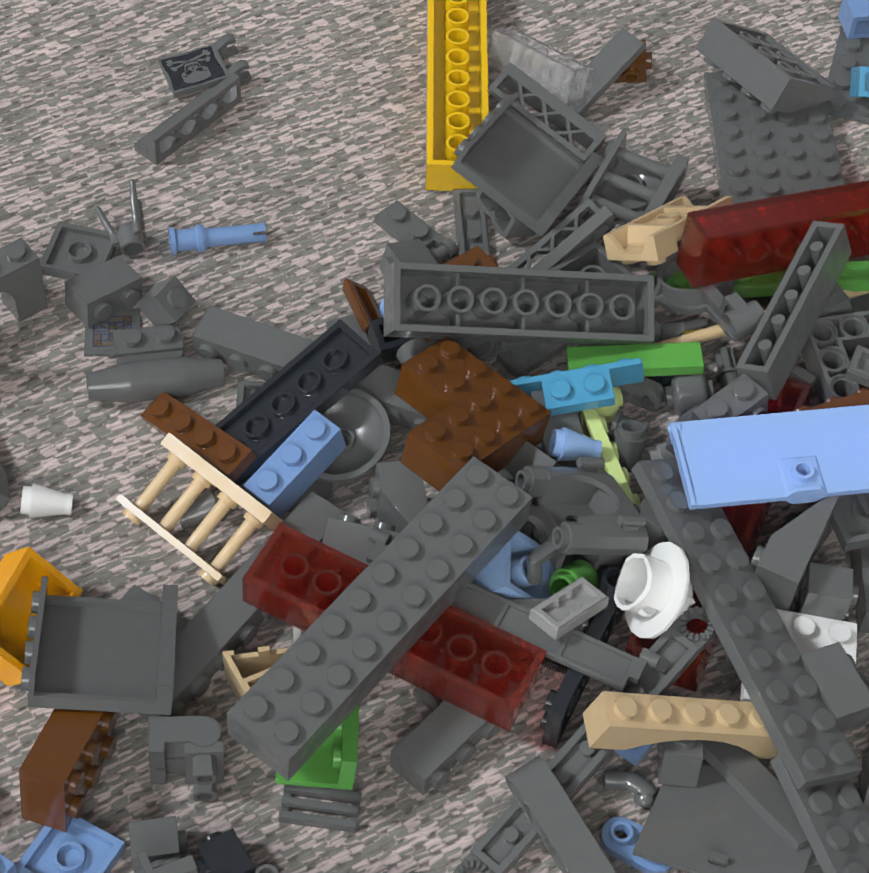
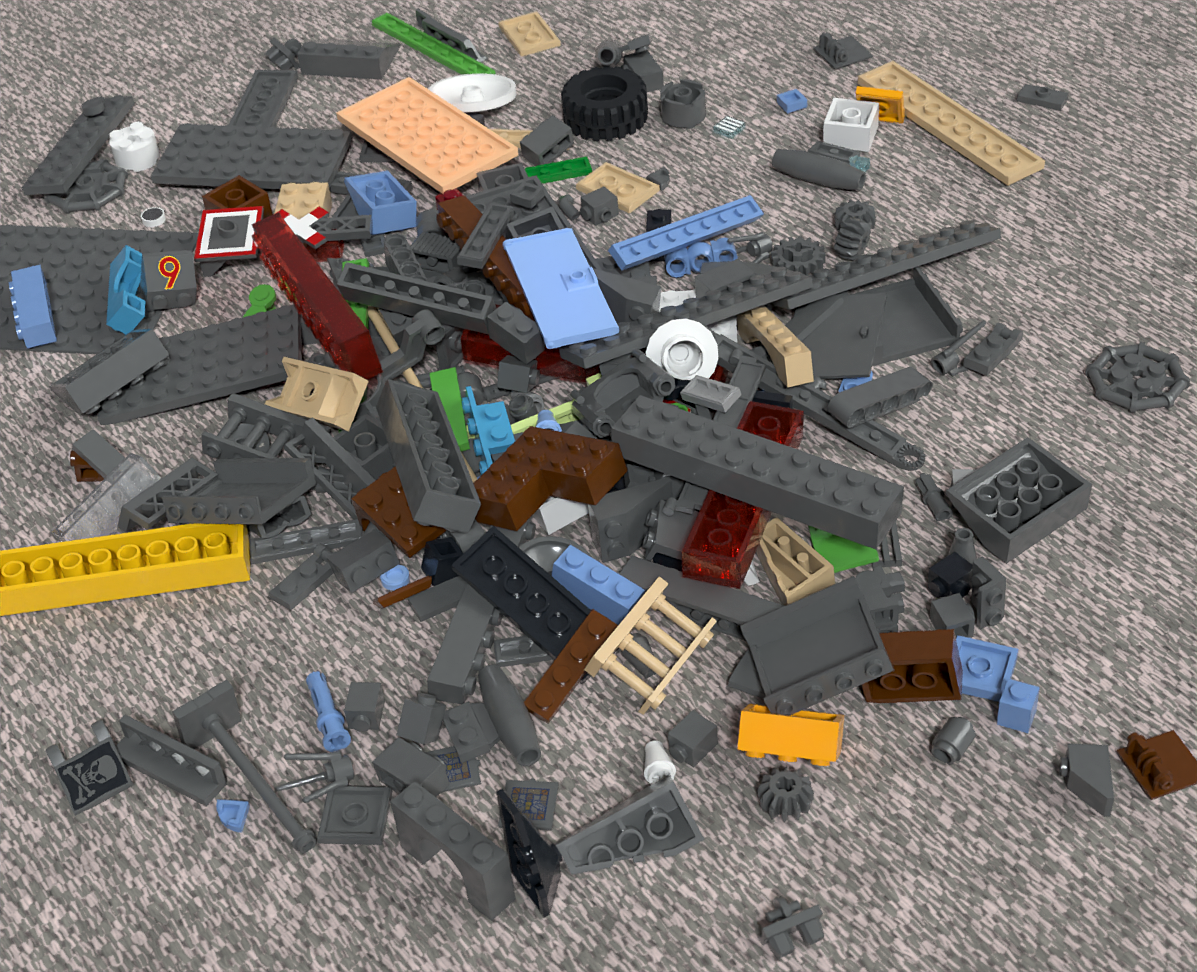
camera: 90 degrees left, 10 degrees down
(41, 390) = (535, 800): none -> piece
(63, 536) = (692, 739): none -> dark grey brick
(115, 167) = (233, 813): none -> medium blue tile
(207, 263) = (364, 706): none -> dark grey brick
(218, 138) = (209, 718): none -> dark grey tile

